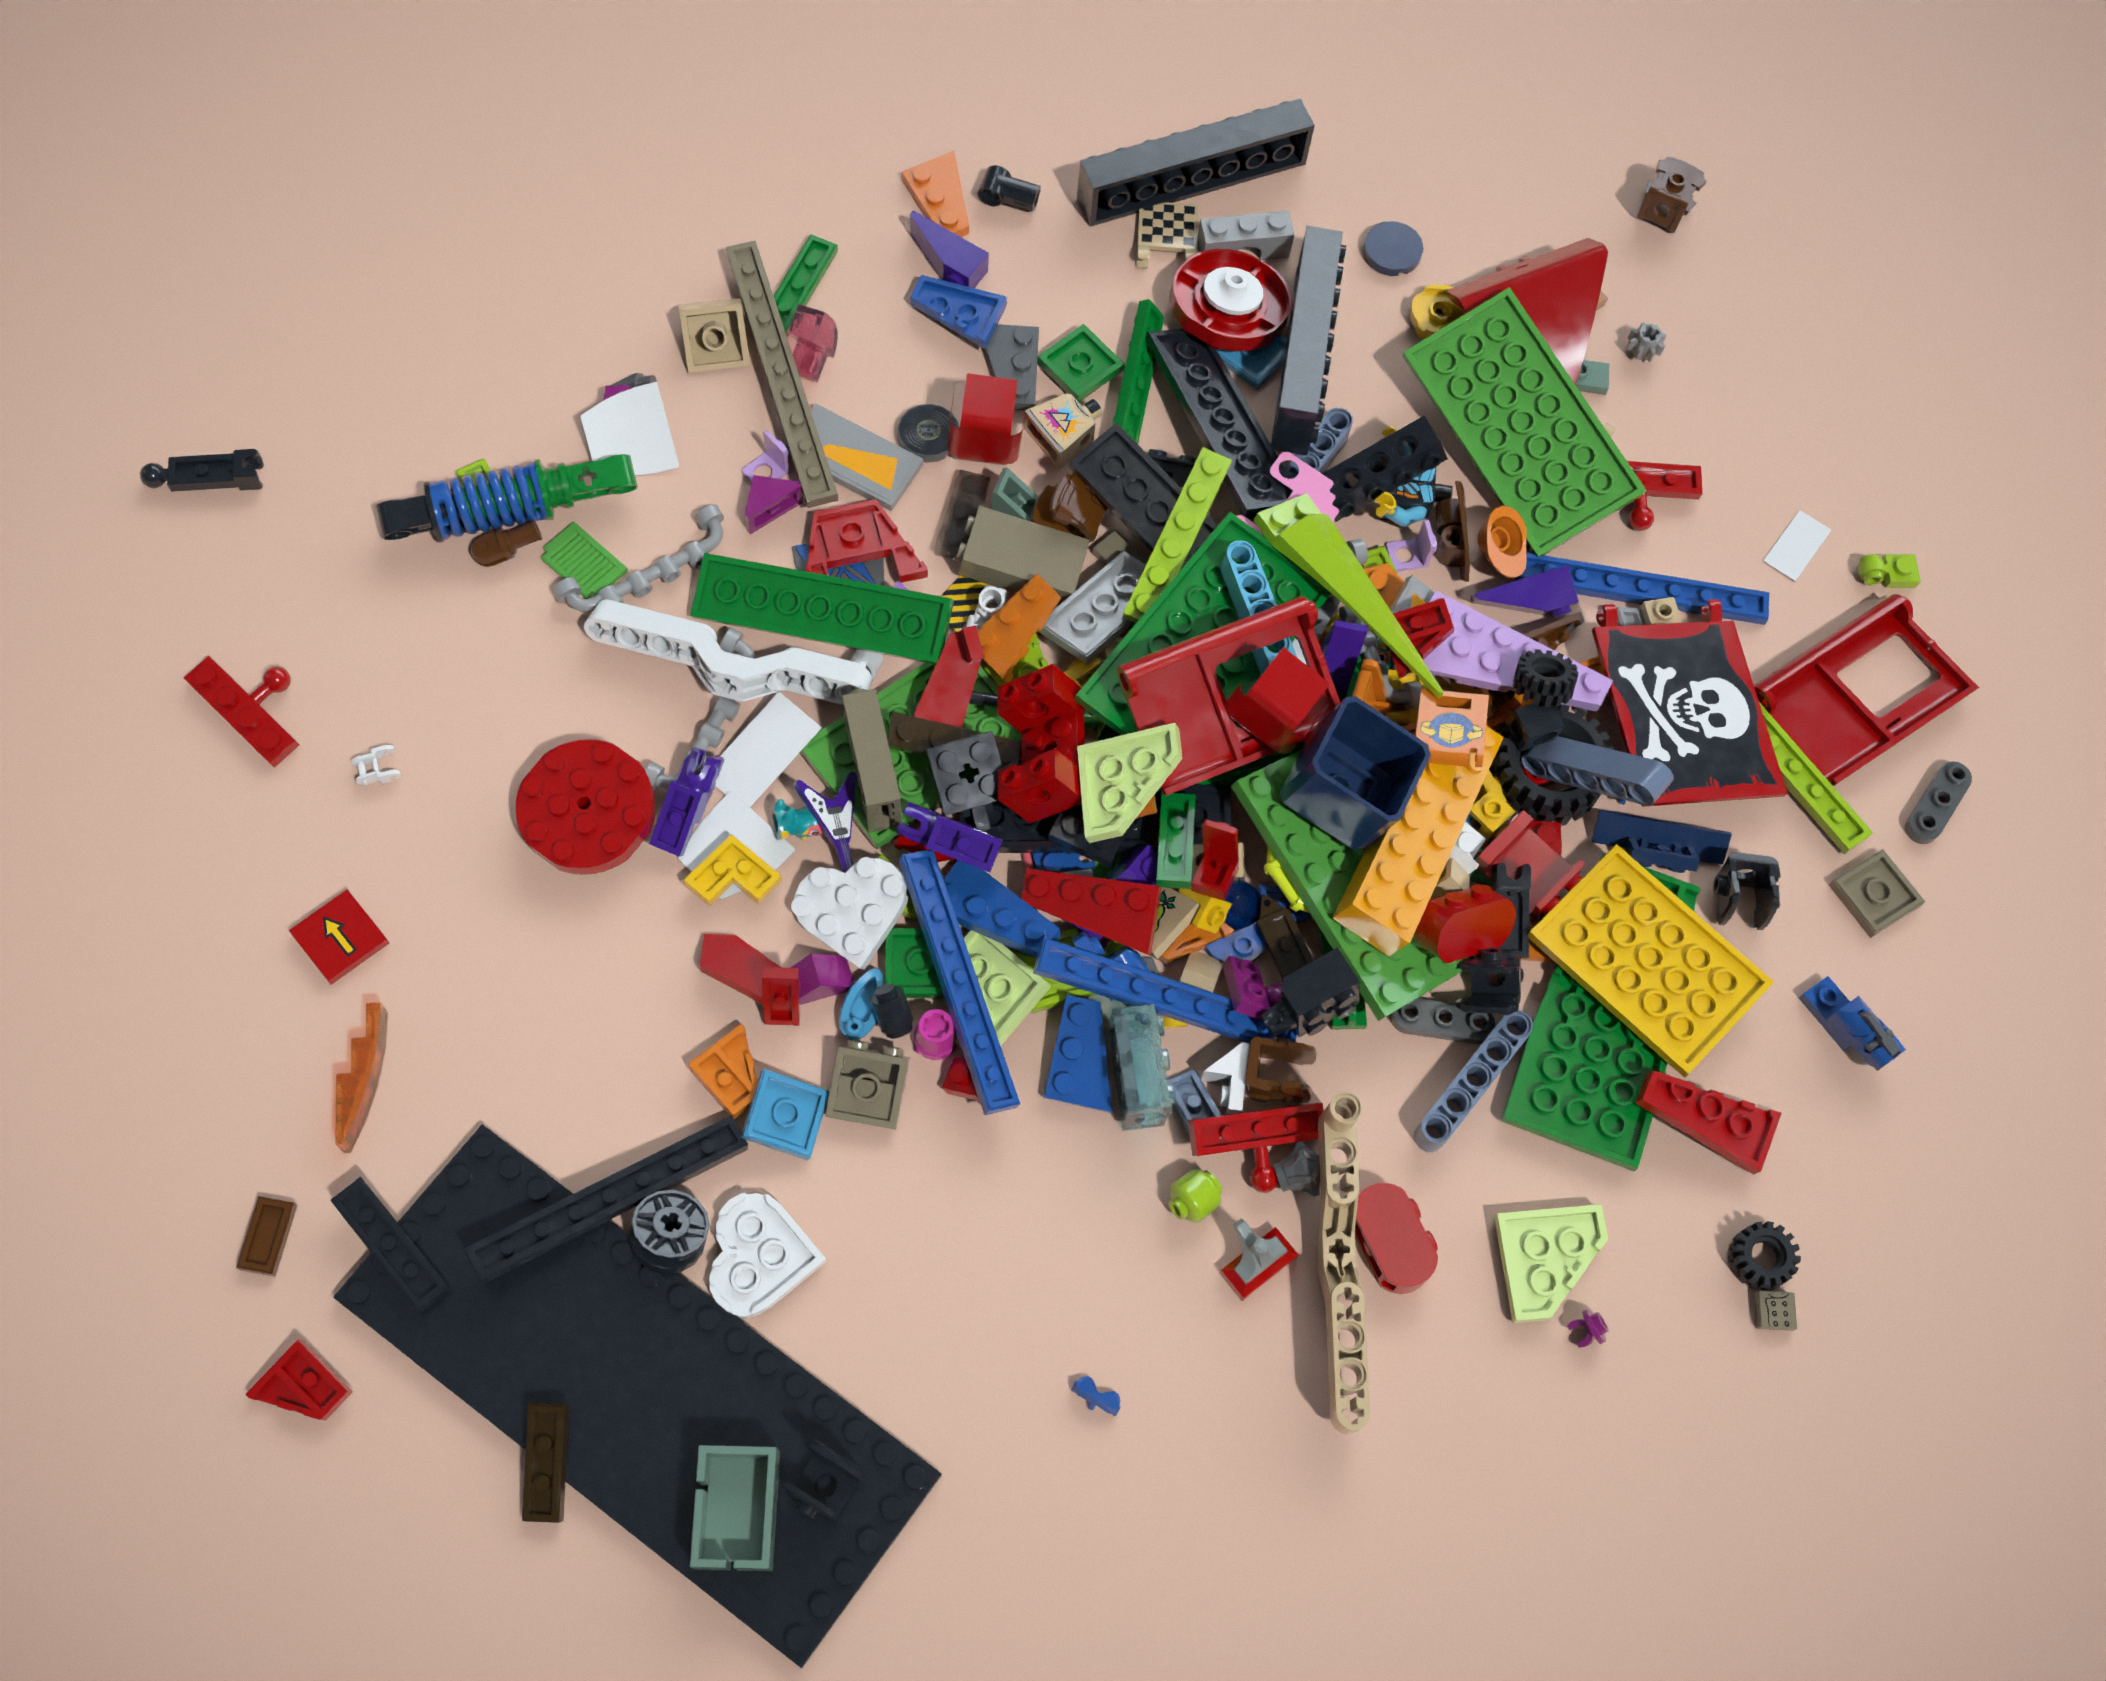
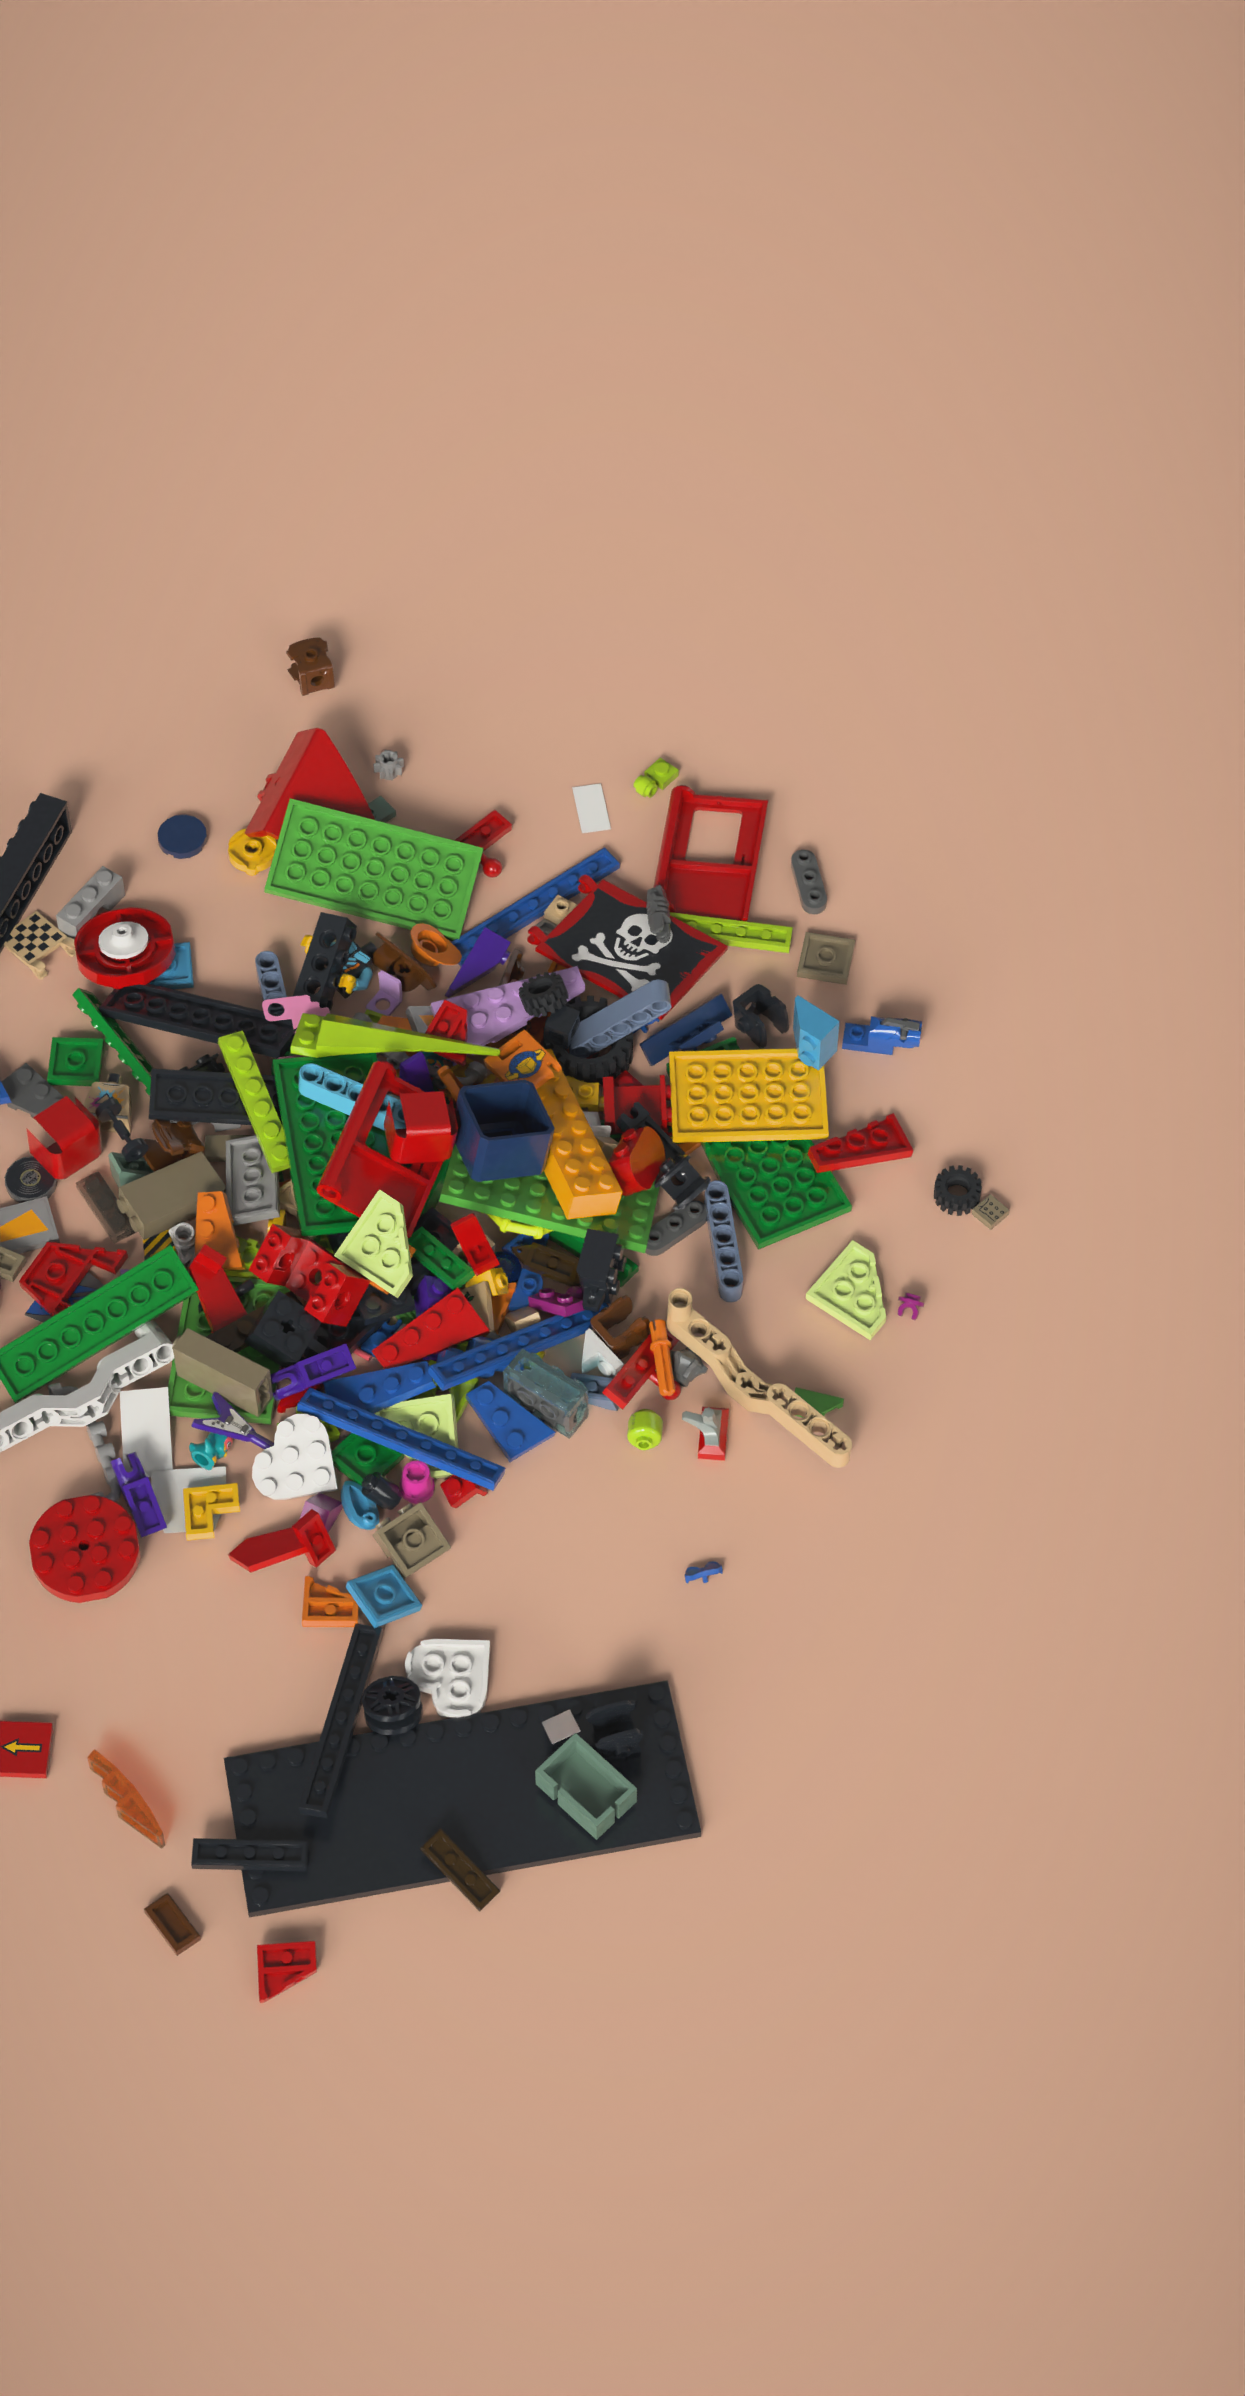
camera: 40 degrees left, 10 degrees down
(781, 1421) = (560, 1726): none -> white sticker
(1048, 429) = (134, 1148): none -> black wheel
(1284, 1141) = (660, 1347): none -> orange axle
(1308, 341) = (202, 929): brick -> none
(1386, 1333) = (821, 1402): none -> bright green tile
(1394, 1238) = (770, 1354): brick -> none
(1749, 701) = (658, 913): none -> dark grey hinge
(1776, 963) = (814, 1033): none -> dark azure slope

